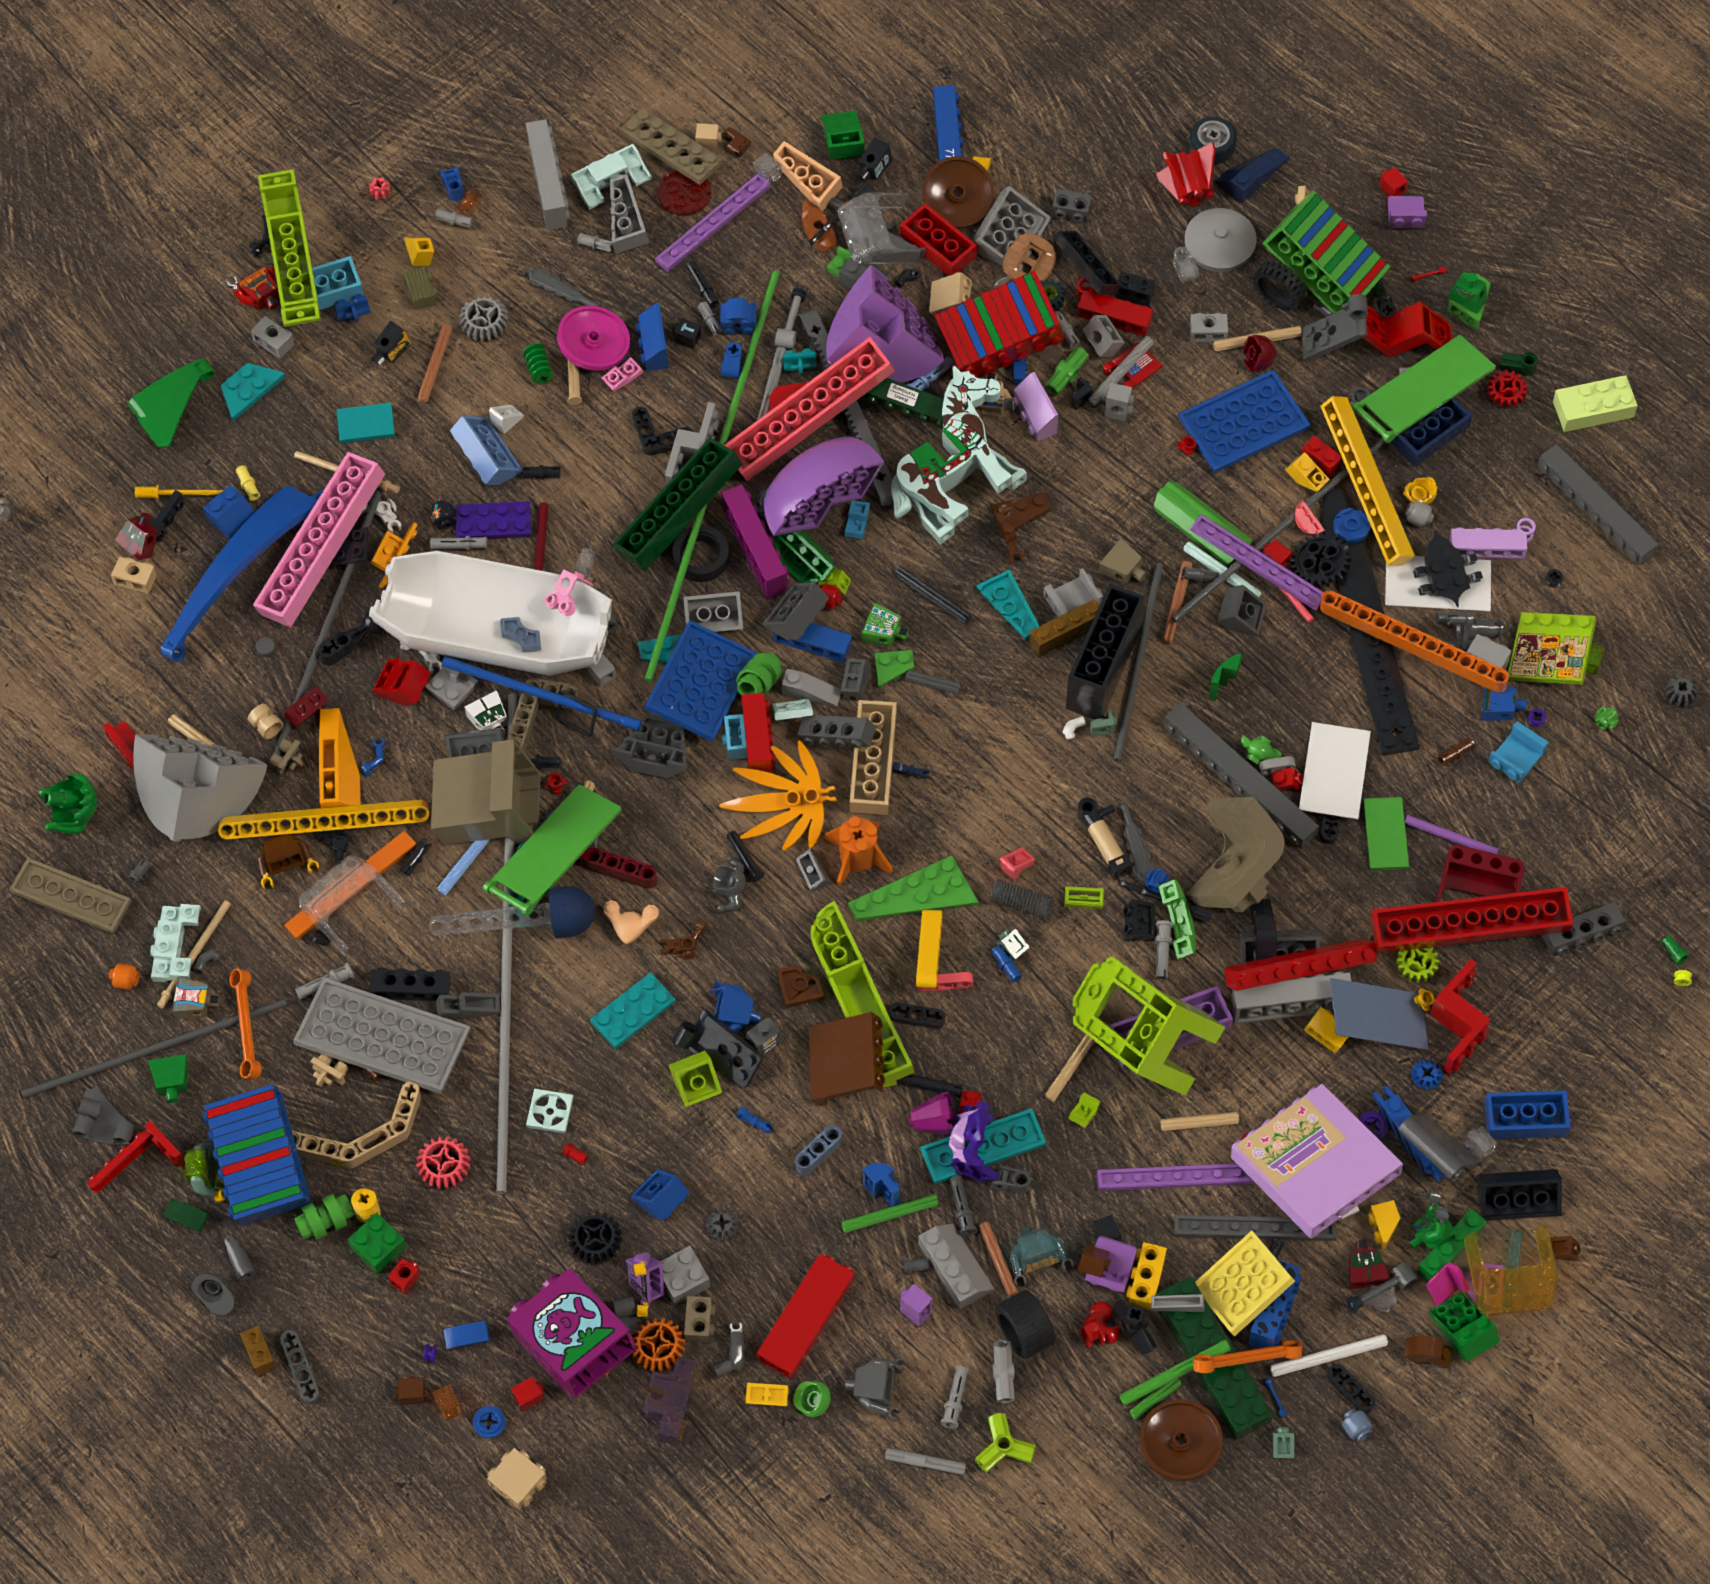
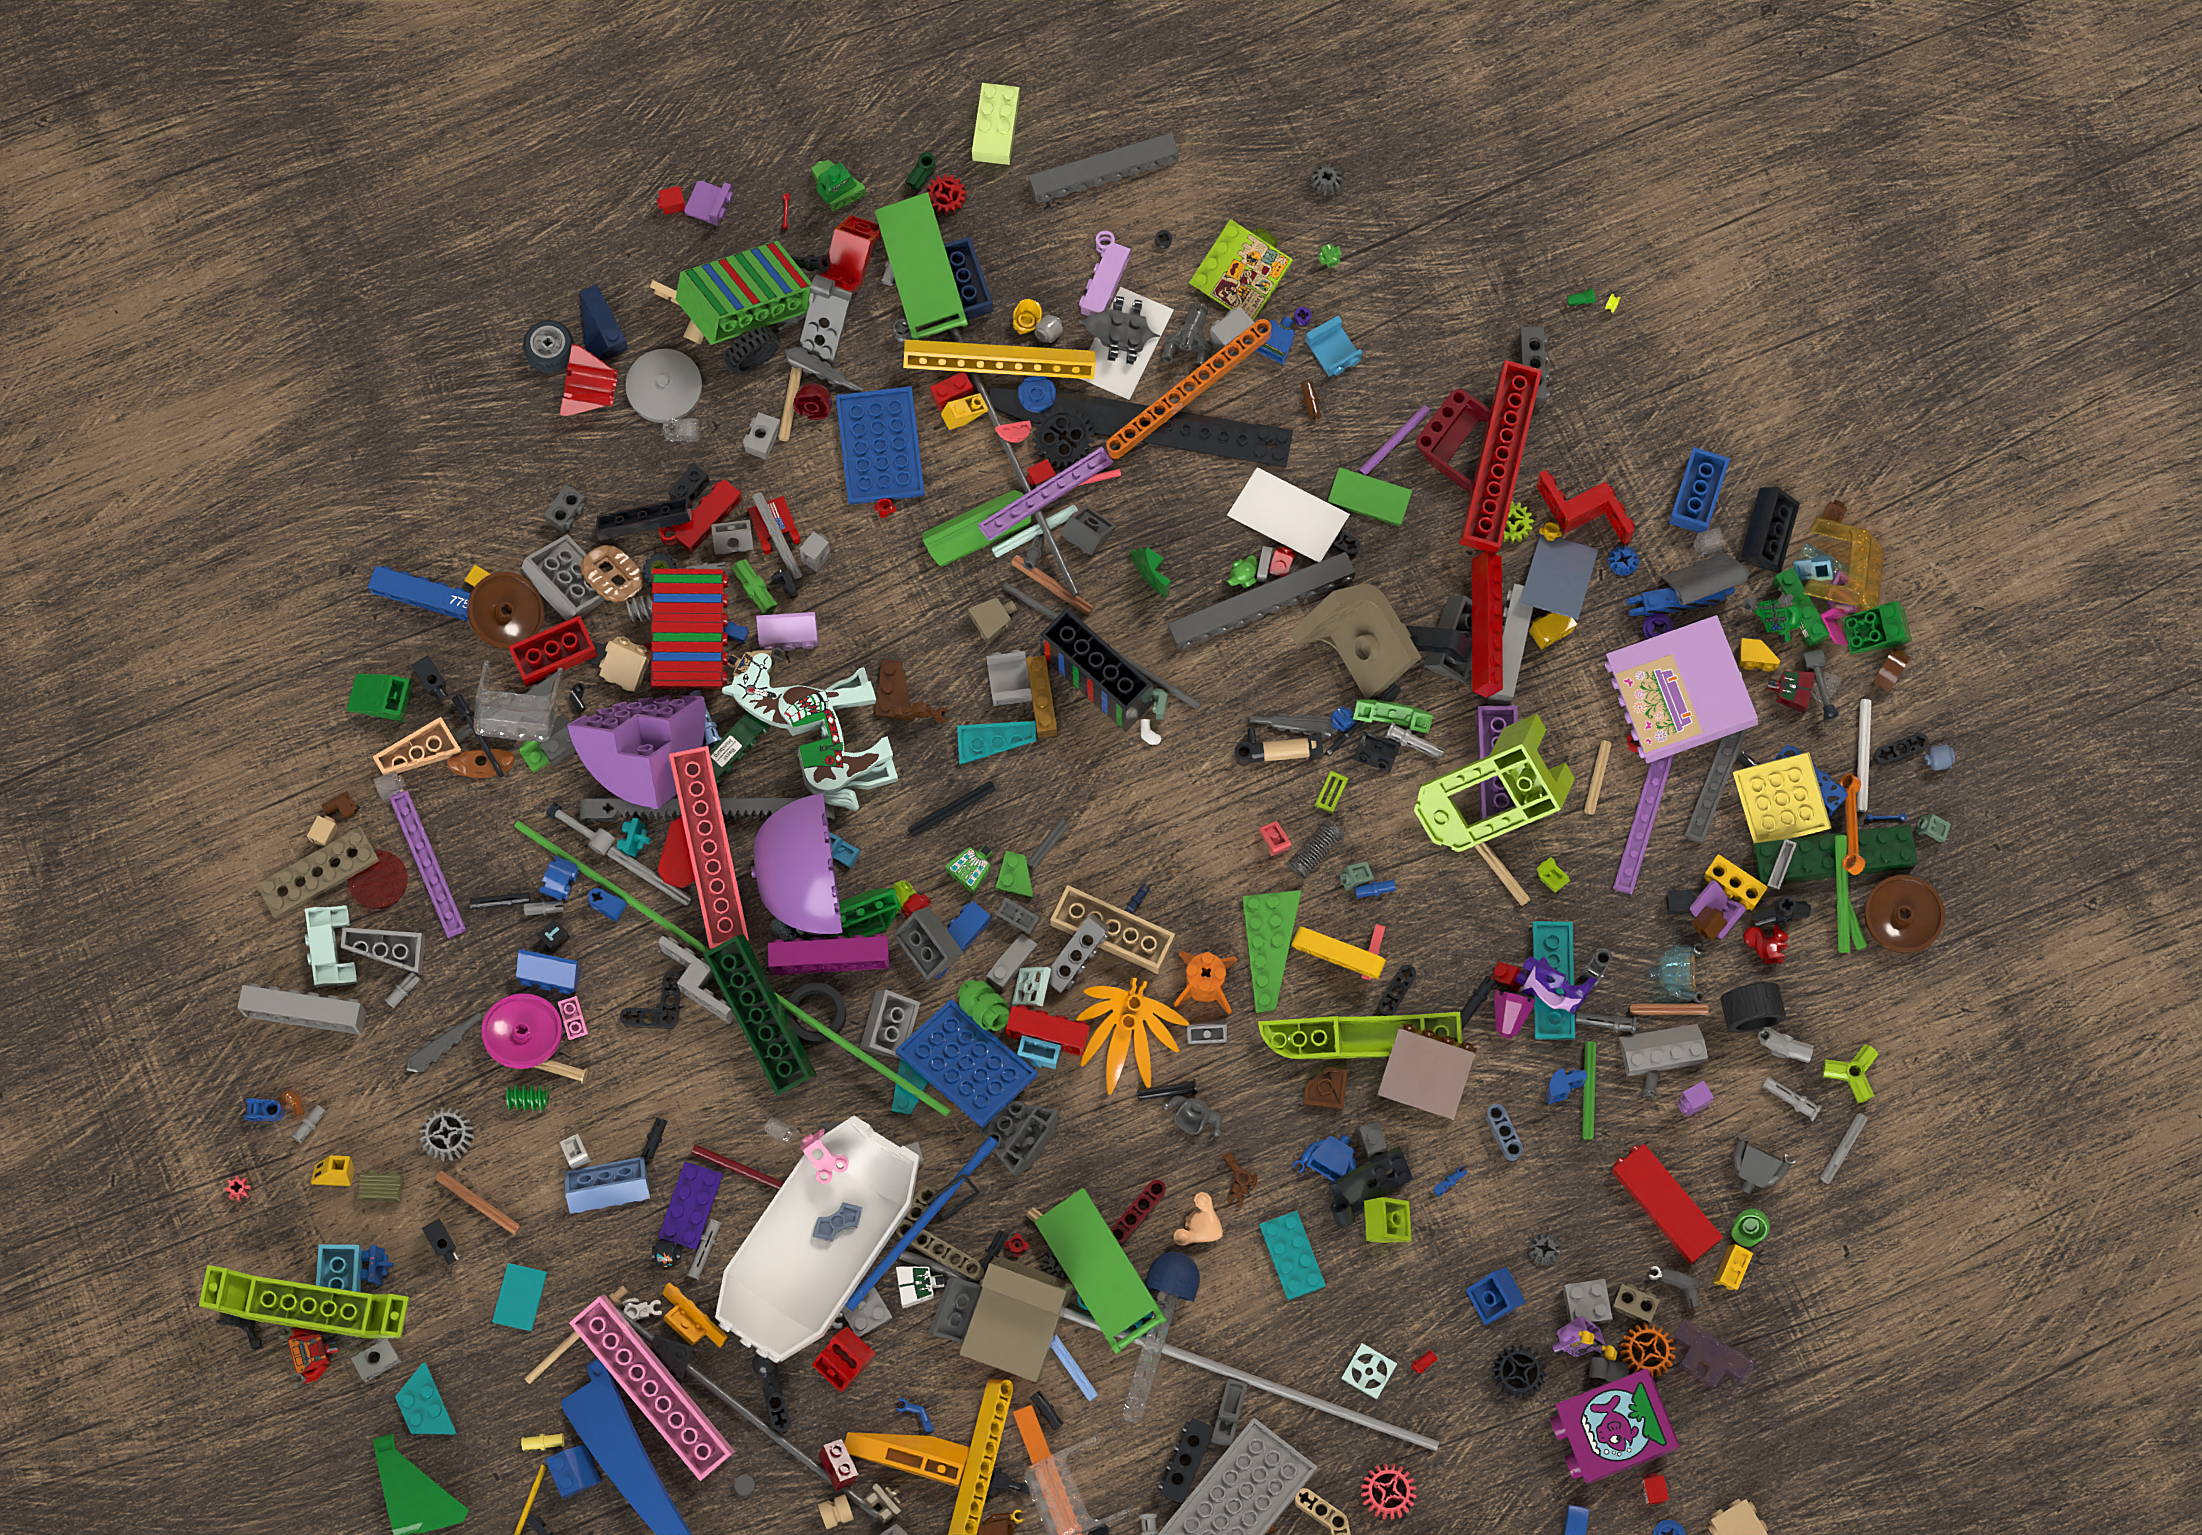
camera: 70 degrees left, 10 degrees up
(1292, 340) = (812, 365): none -> dark grey sword
(1496, 1245) = (1816, 568): none -> dark azure brick

